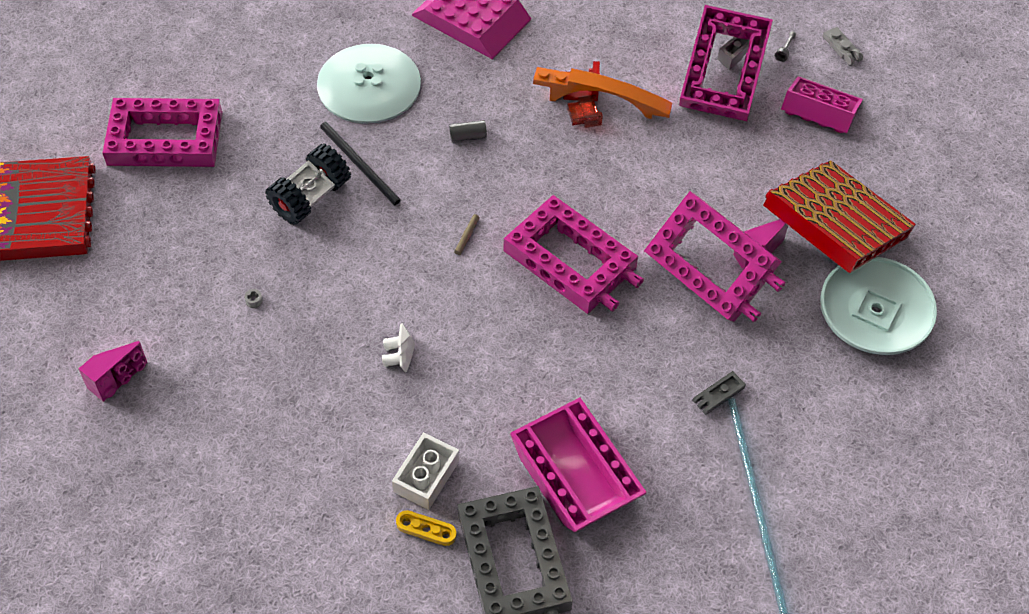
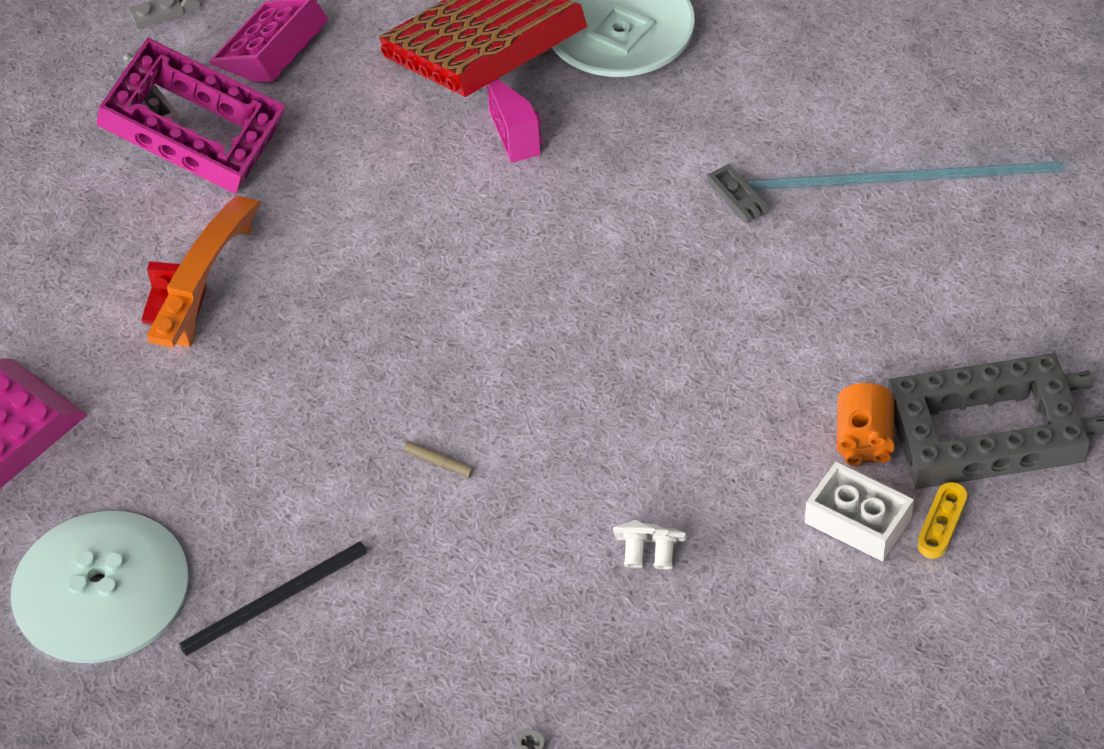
camera: 80 degrees left, 5 degrees down
(307, 185) = (345, 672): black plate -> none
(468, 130) = (238, 446): dark grey pin -> none
(499, 472) = (865, 423): none -> orange cylinder
(576, 465) = (858, 336): dark pink slope -> none
(584, 293) = (475, 388): dark pink brick -> none
(585, 112) = (229, 298): clear red piece -> none
(749, 282) = (583, 120): dark pink brick -> none

